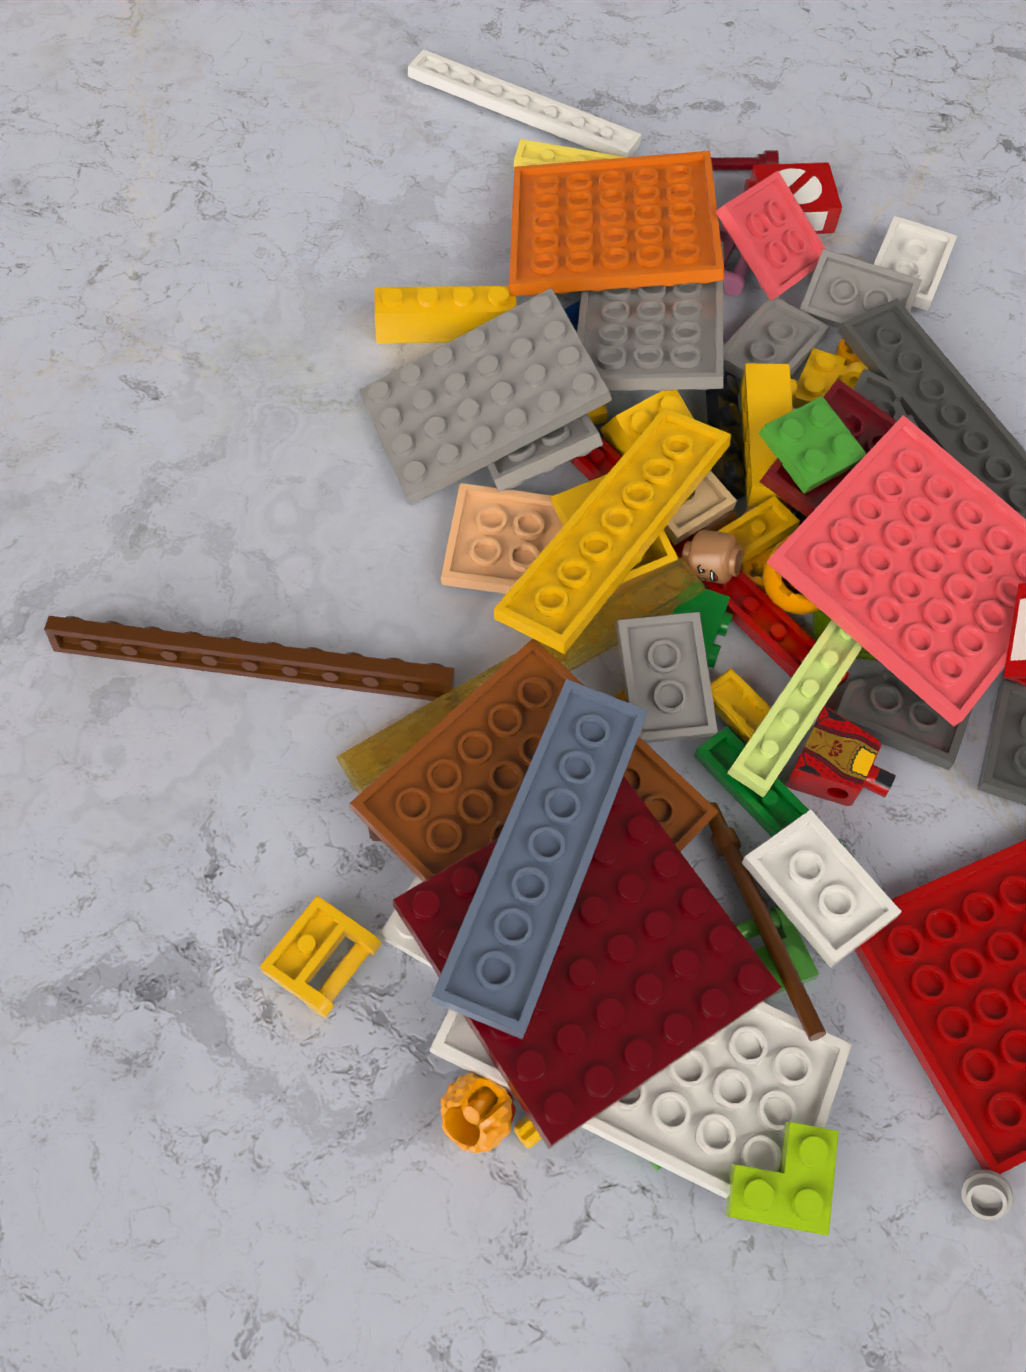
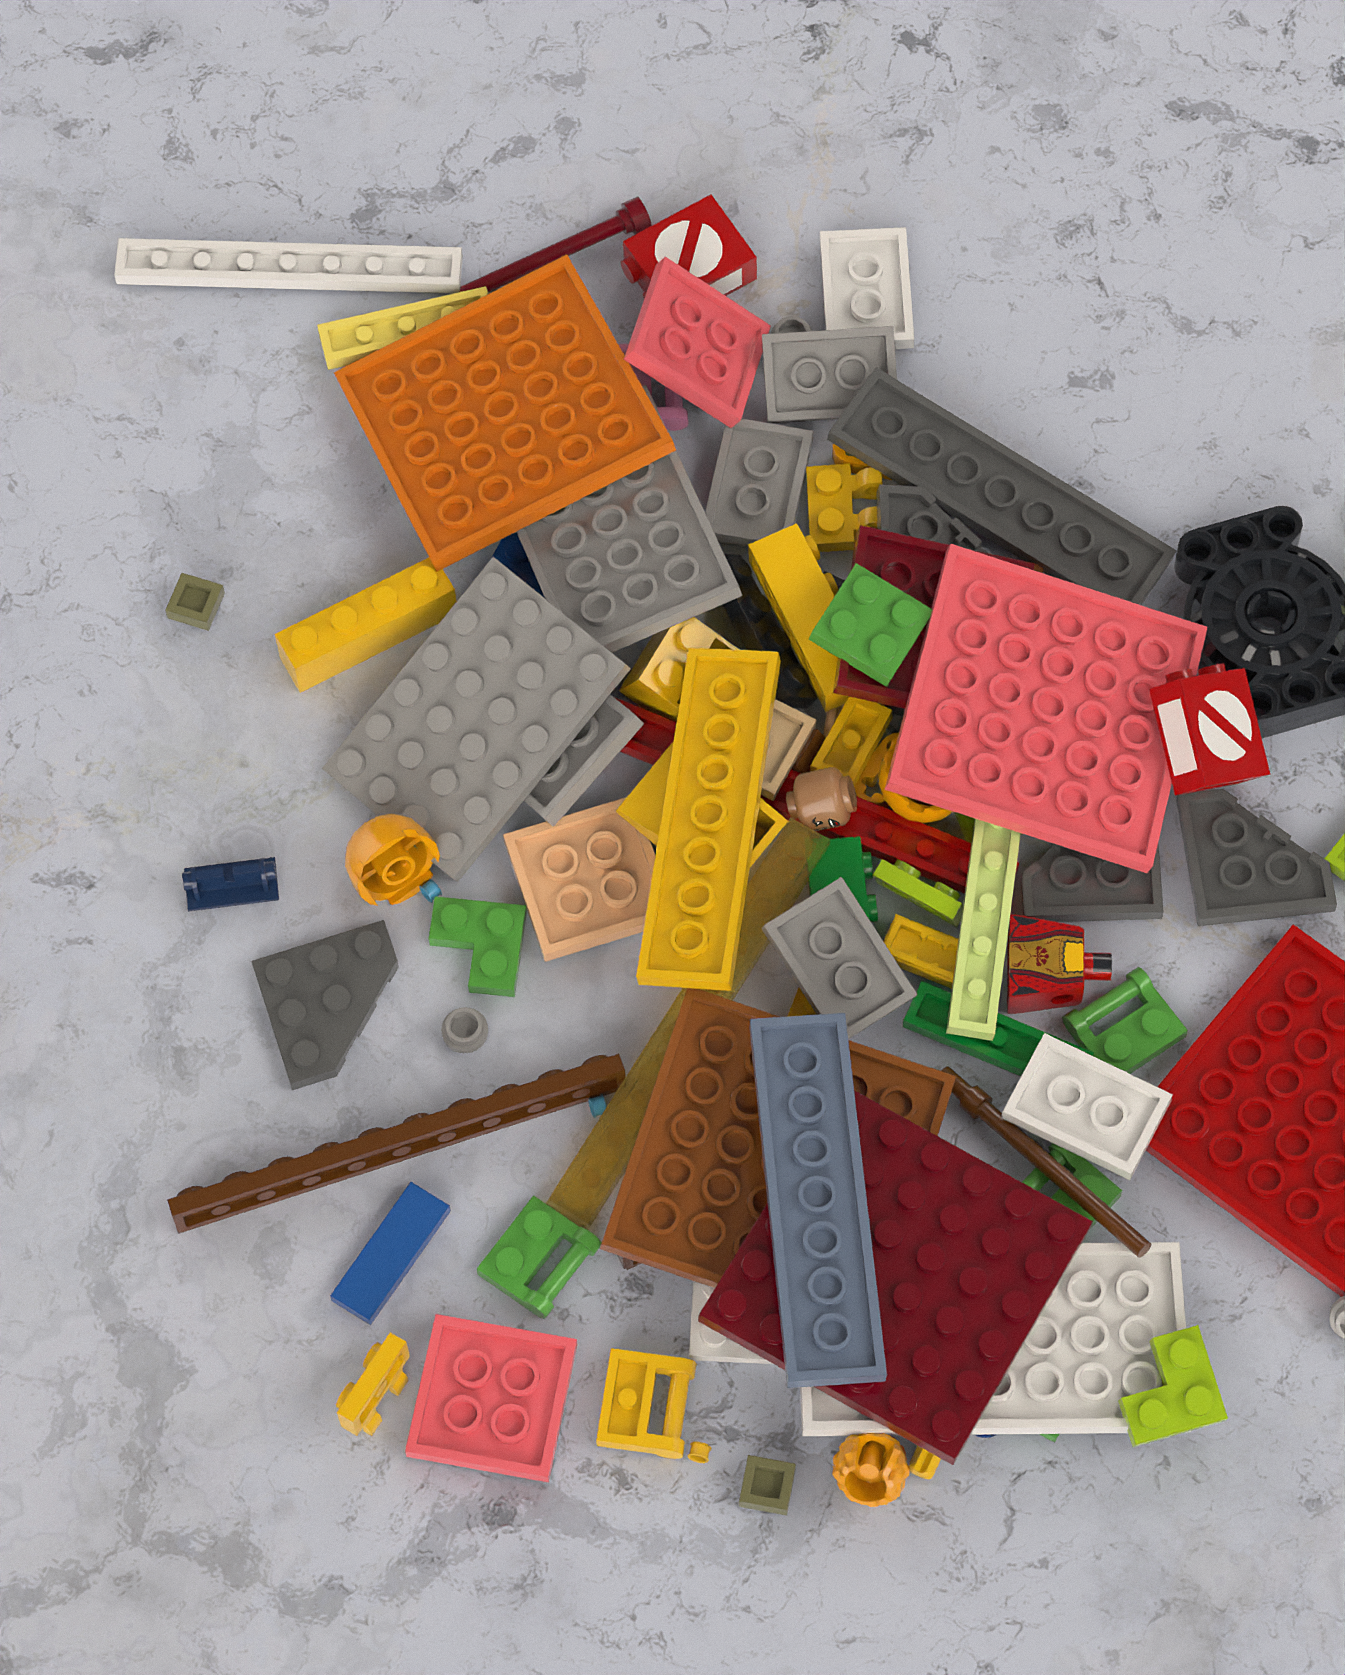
camera: 20 degrees left, 5 degrees up
(89, 834) = (382, 1372): none -> yellow plate
(195, 738) = (390, 1253): none -> blue tile
(199, 890) = (491, 1398): none -> coral plate
(247, 434) = (231, 884): none -> dark blue hinge
(265, 537) = (324, 997): none -> dark grey plate
(300, 786) = (526, 1249): none -> bright green plate
(339, 258) = (195, 601): none -> olive plate
(342, 1020) = (699, 1452): none -> yellow piece
(352, 603) = (464, 1030): none -> light grey plate
(363, 464) = (384, 858): none -> light orange cylinder
(381, 1080) = (767, 1485): none -> olive plate
(387, 500) = (430, 890): none -> dark azure piece
(412, 550) = (492, 933): none -> bright green plate
(420, 702) = (597, 1105): none -> dark azure piece
(750, 650) = (904, 881): none -> lime plate
(885, 853) = (1137, 1036): none -> bright green plate

